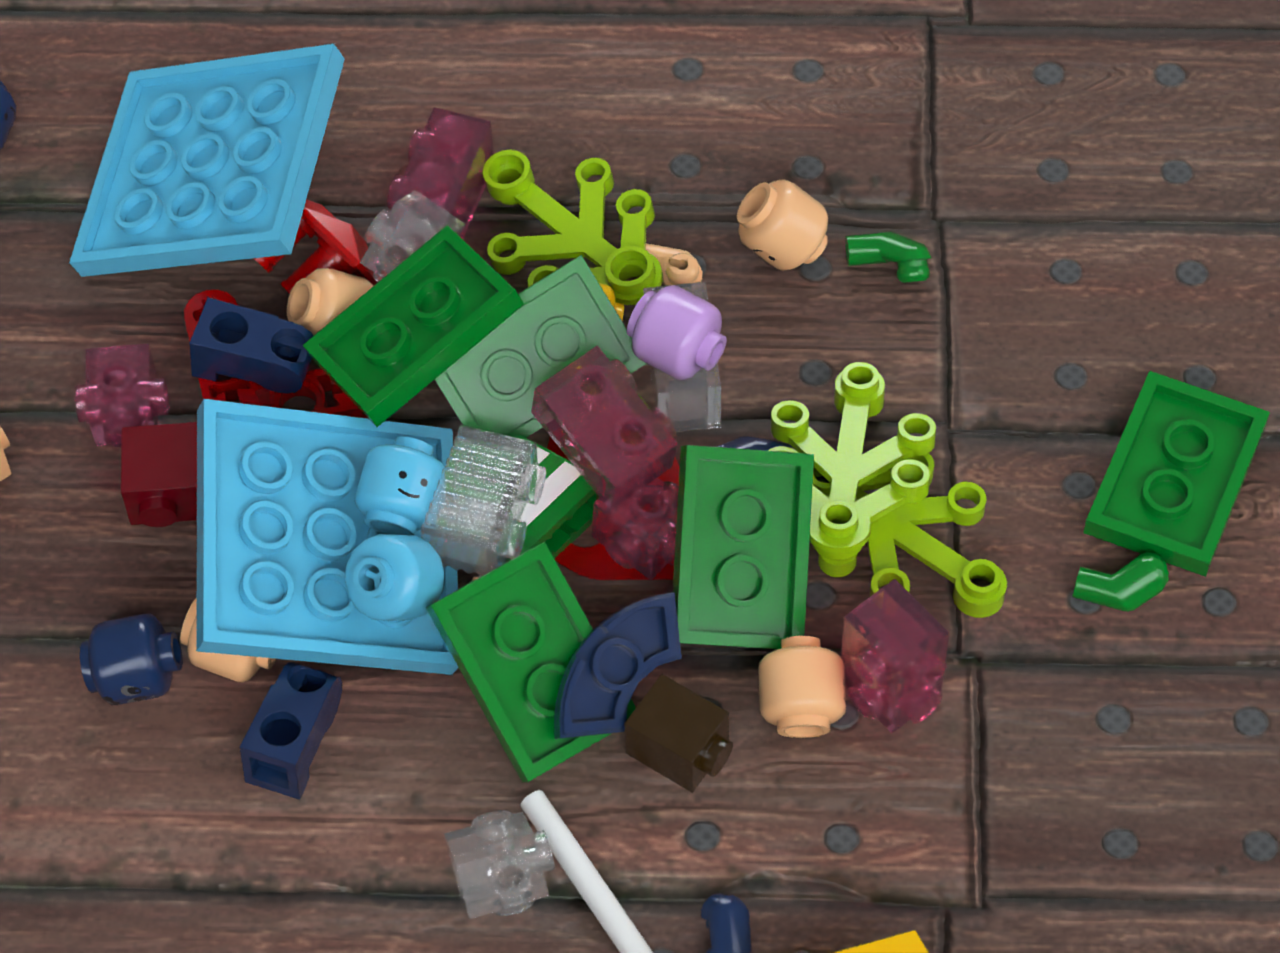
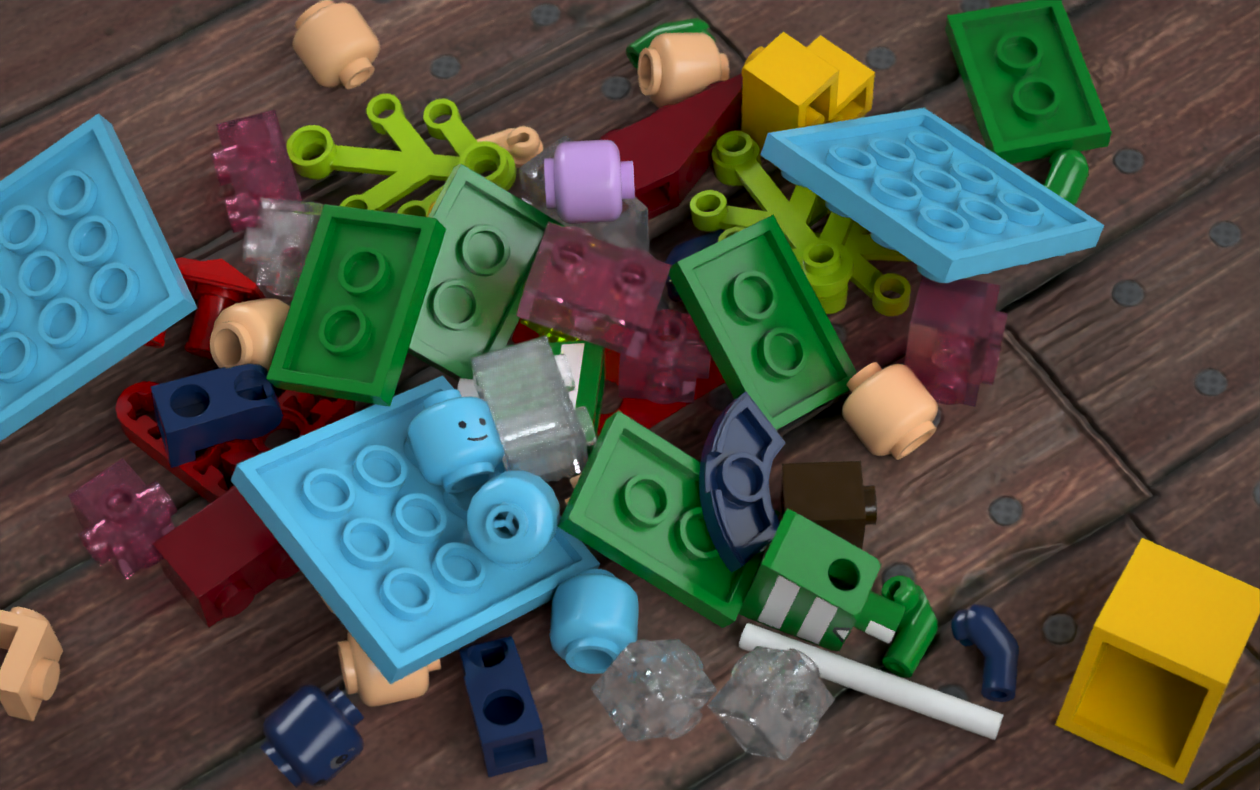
camera: 35 degrees left, 0 degrees up
(411, 792) = (654, 689): none -> clear brick
(413, 708) = (593, 620): none -> medium azure head
(598, 93) = (336, 44): none -> light nougat head
(600, 772) = (819, 587): none -> green torso
(677, 877) = (915, 628): none -> green arm
(782, 224) = (576, 62): light nougat head -> none
(798, 351) = (677, 143): none -> dark red slope
(872, 285) = (680, 67): none -> light nougat head
(950, 371) = (802, 87): none -> yellow brick
(975, 519) = (931, 193): none -> medium azure plate

